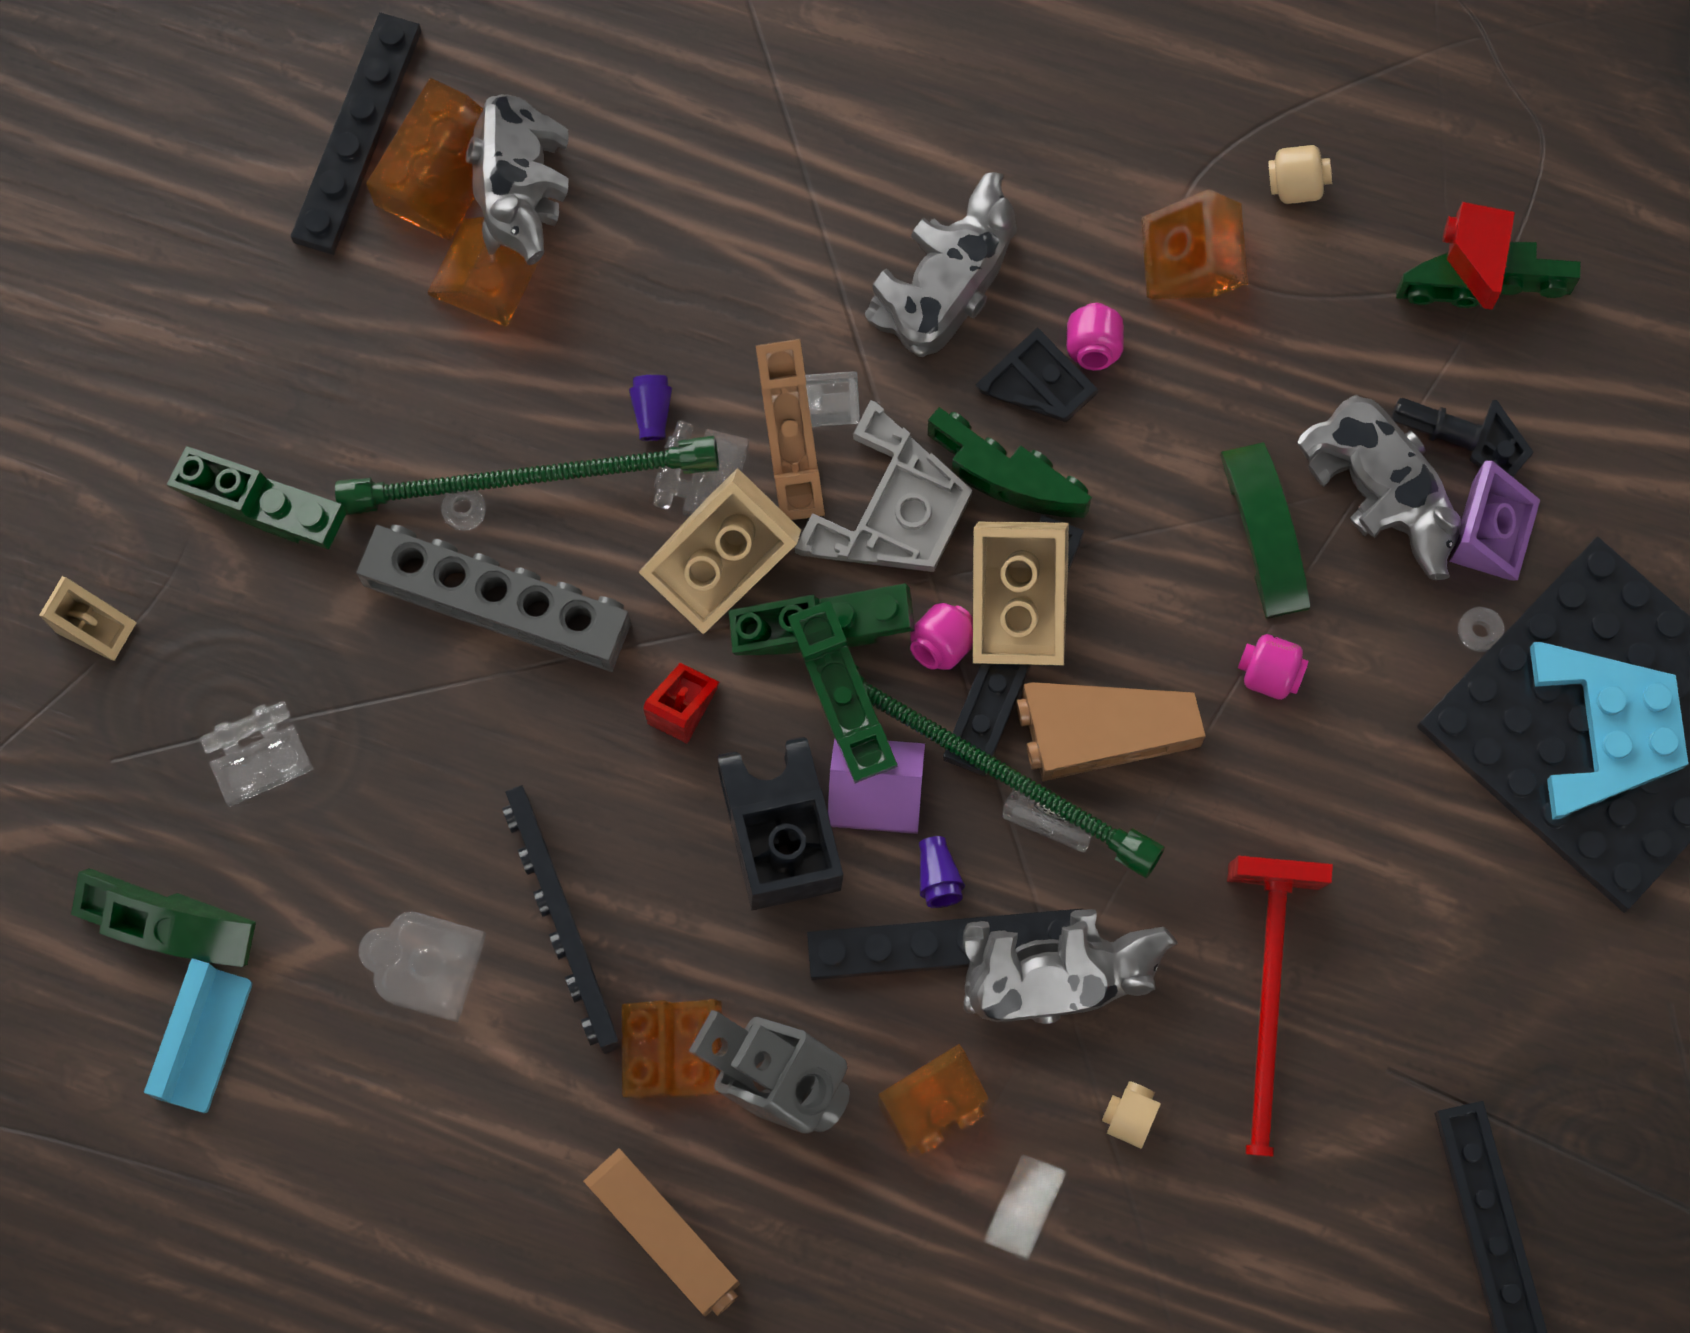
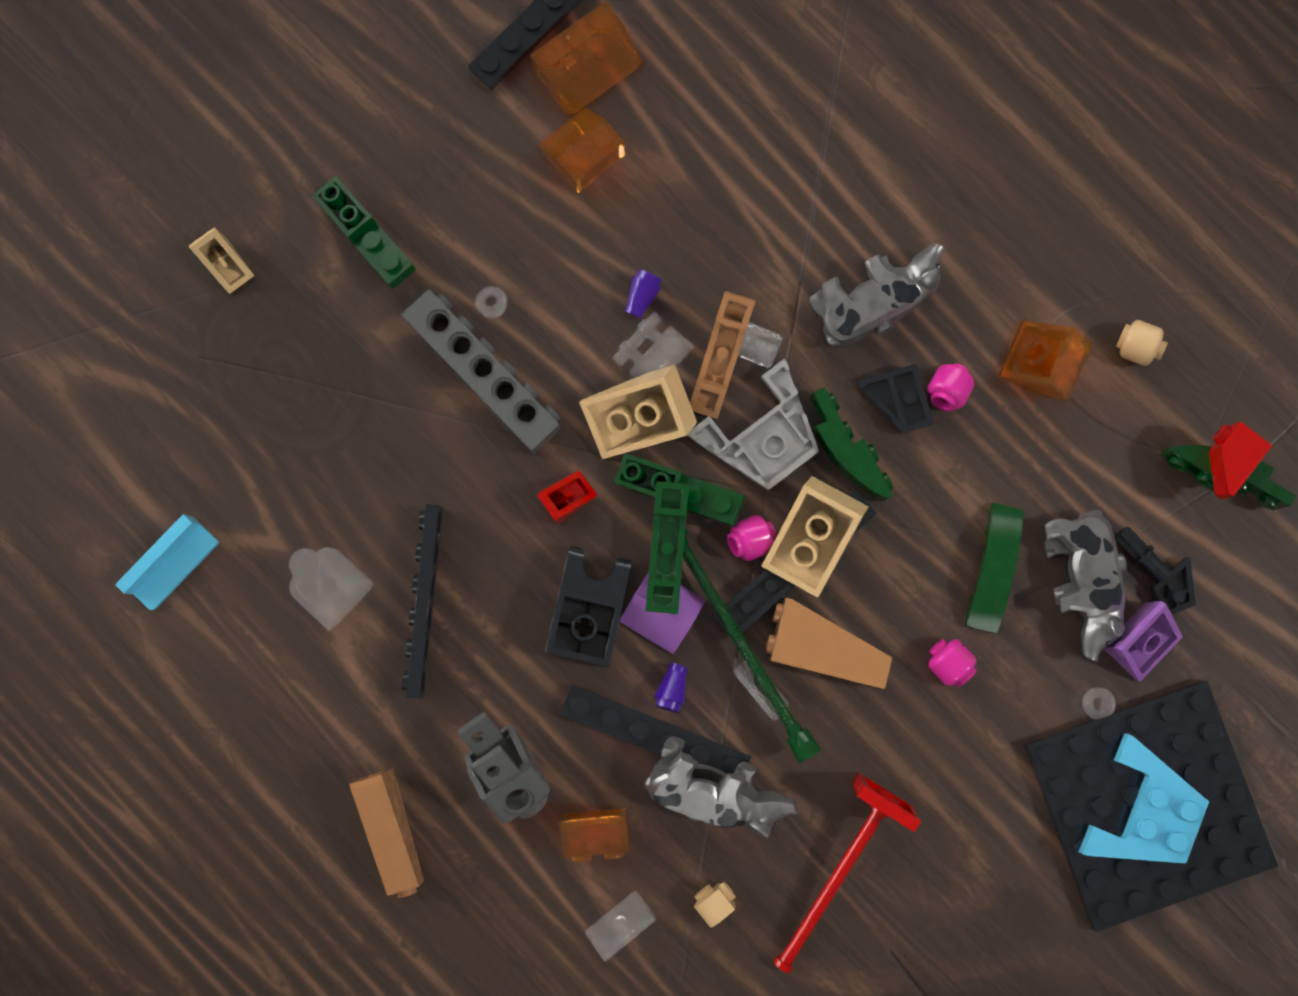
camera: 25 degrees right, 10 degrees up
(162, 923) = (178, 484): dark green slope -> none
(261, 764) = (287, 407): clear plate -> none
(511, 175) = (624, 96): flat silver animal -> none
(658, 1046) = (446, 709): clear orange slope -> none
(691, 456) = (650, 341): dark green hose -> none

